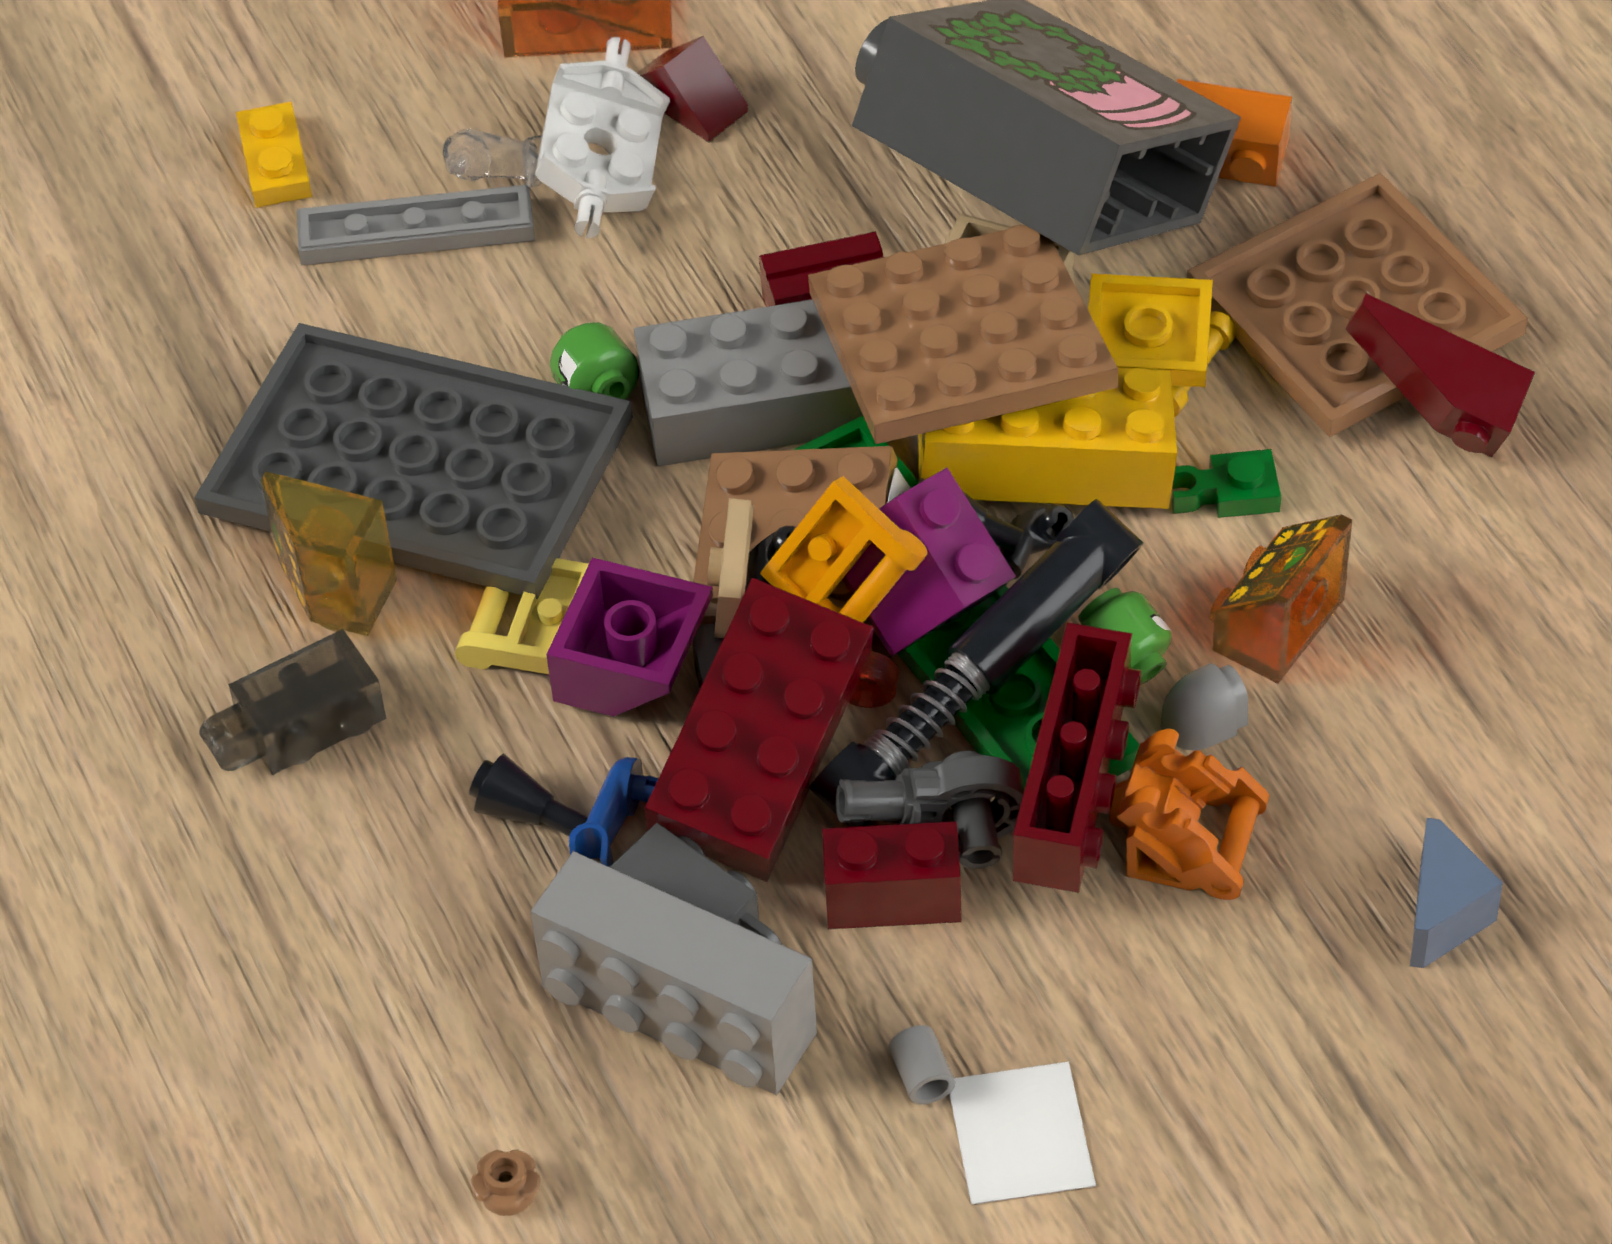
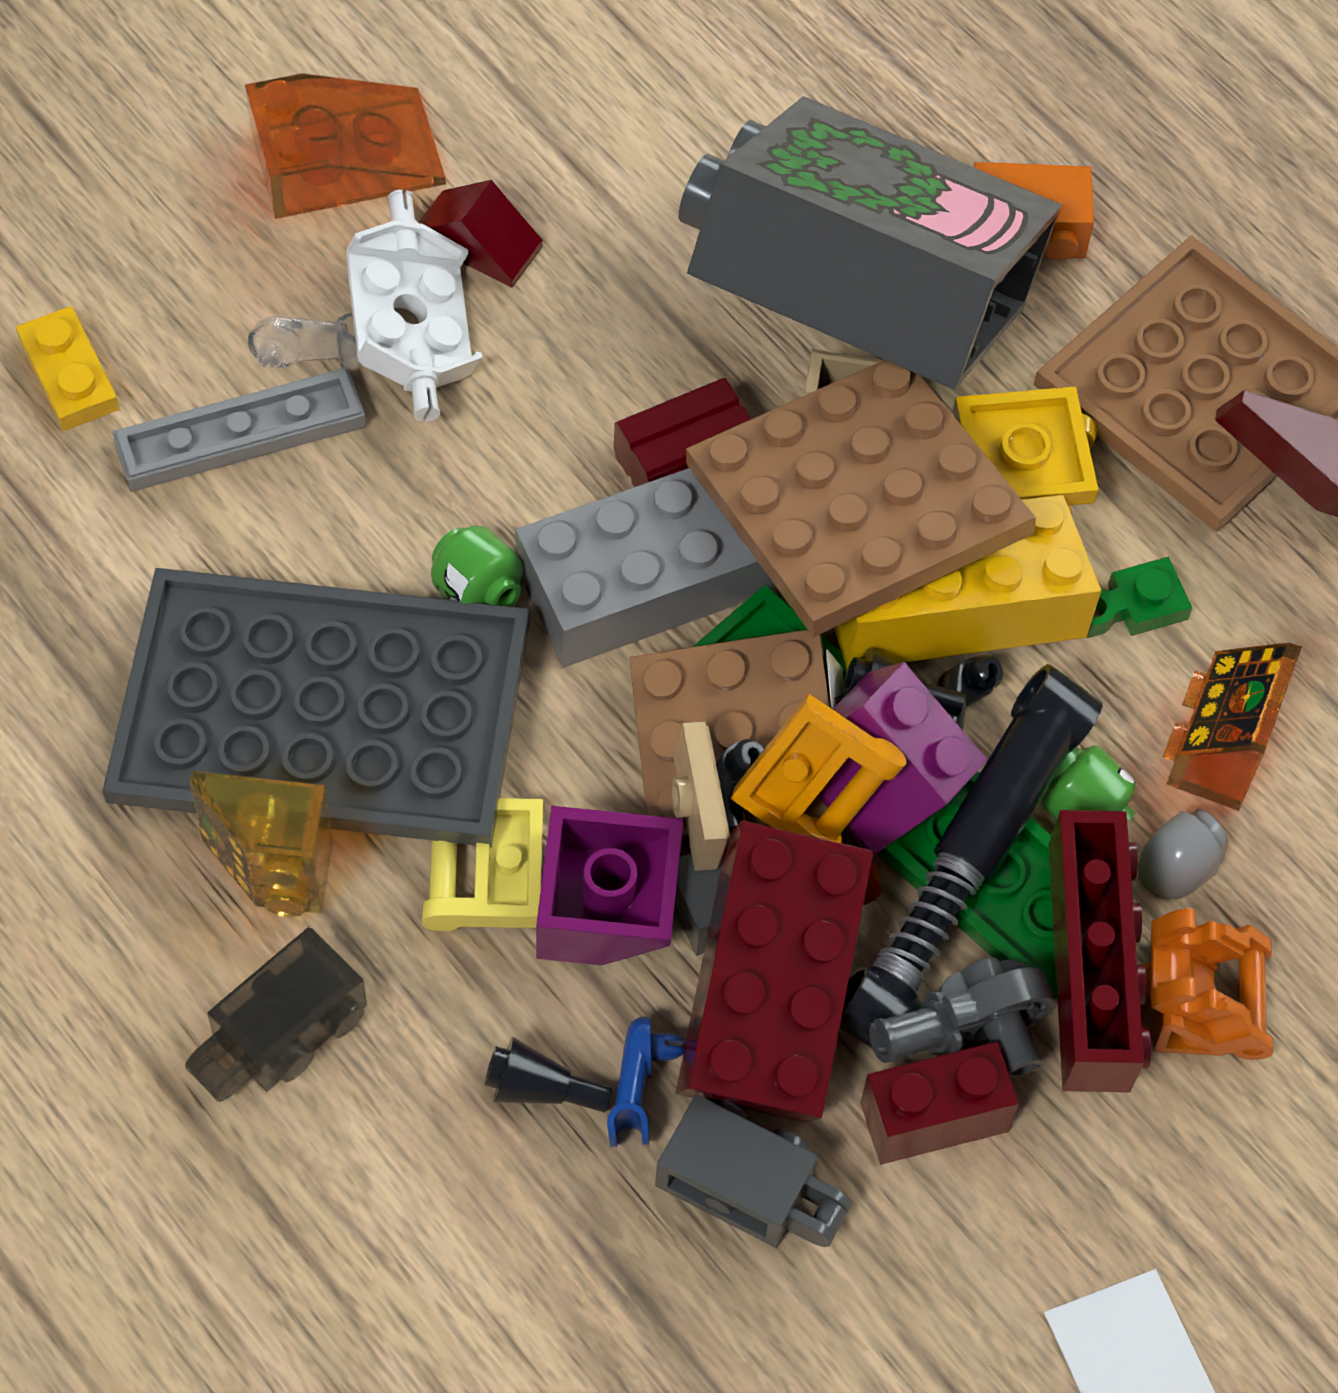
camera: 20 degrees left, 10 degrees up
(675, 973) = (761, 1264): light grey brick -> none
(921, 1064) = (1021, 1306): light grey hinge -> none

